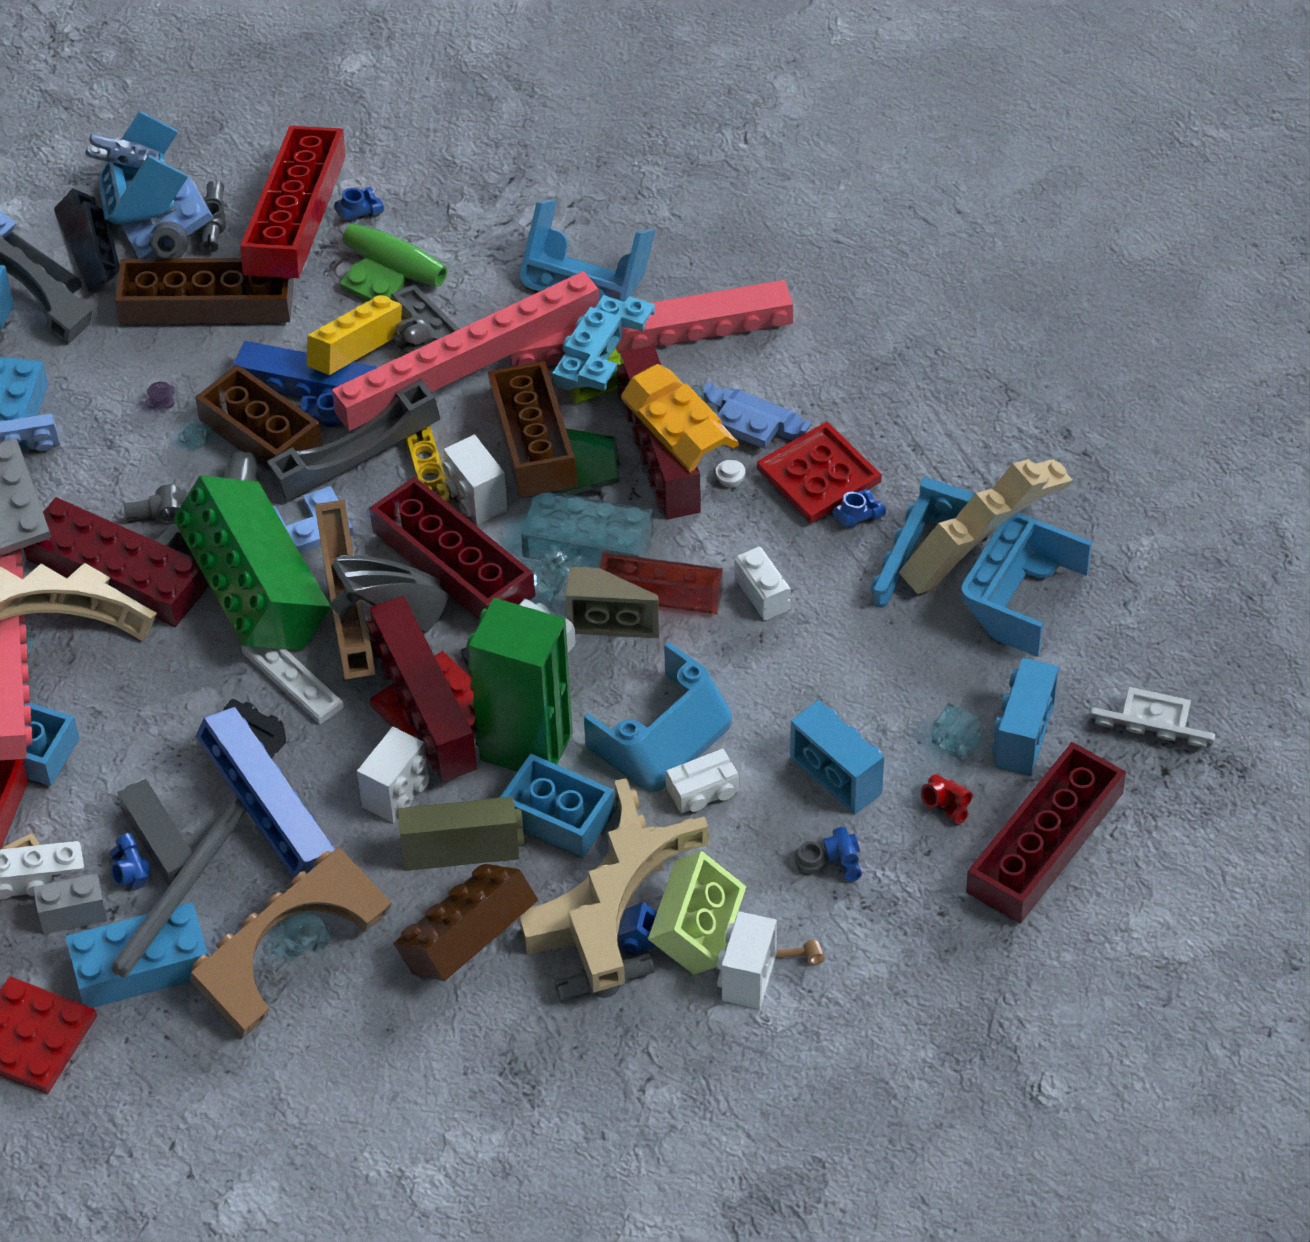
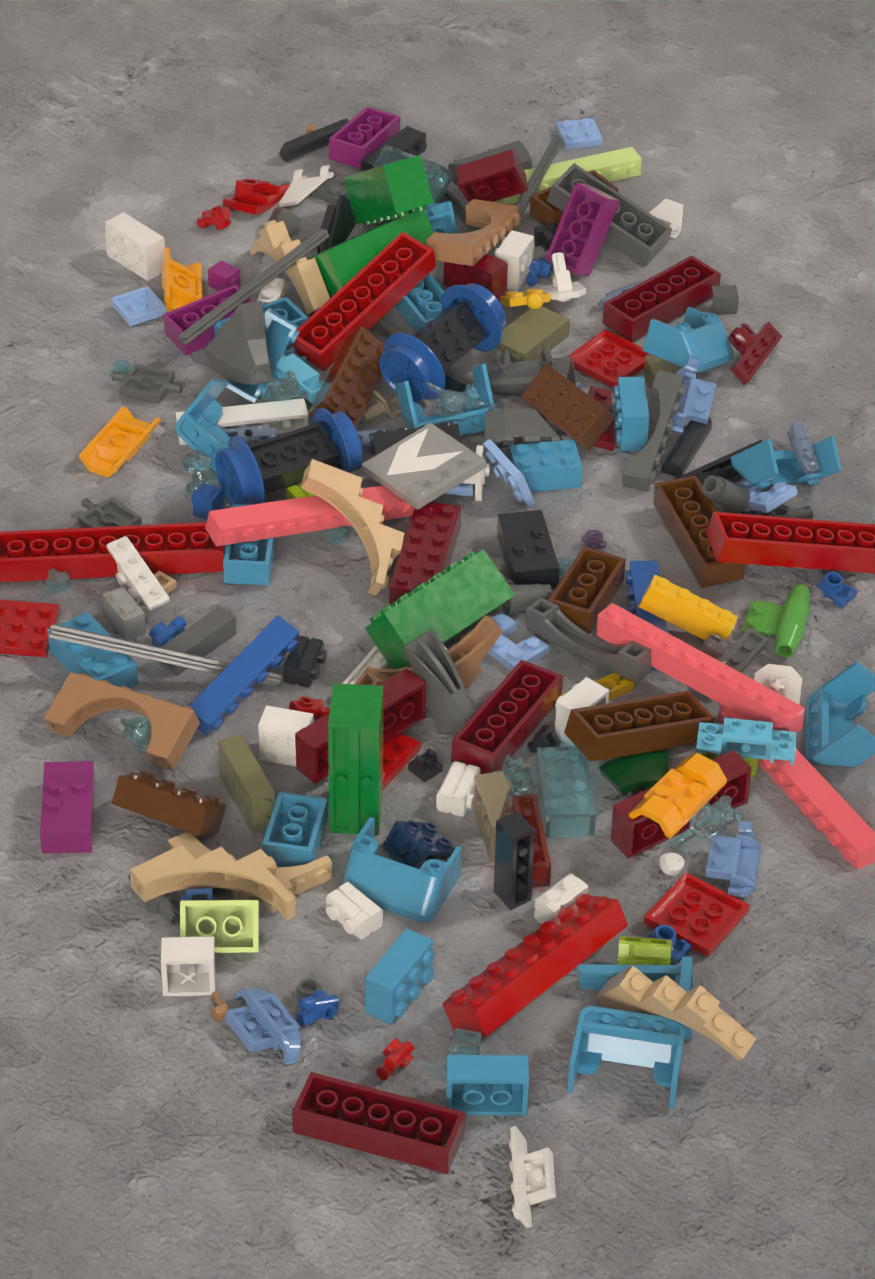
camera: 70 degrees right, 10 degrees down
(152, 456) = (527, 548): none -> black brick
(341, 747) = (309, 705): none -> red plate
(411, 1038) = (67, 807): none -> magenta brick
(495, 292) = (781, 680): none -> white piece
(495, 530) = (544, 738): none -> black tile
(618, 694) = (413, 842): none -> dark blue bracket
(718, 593) = (513, 860): none -> black brick
(848, 910) = (265, 1024): none -> medium blue plate
(862, 628) = (535, 964): none -> red brick
(876, 529) = (644, 951): none -> lime brick

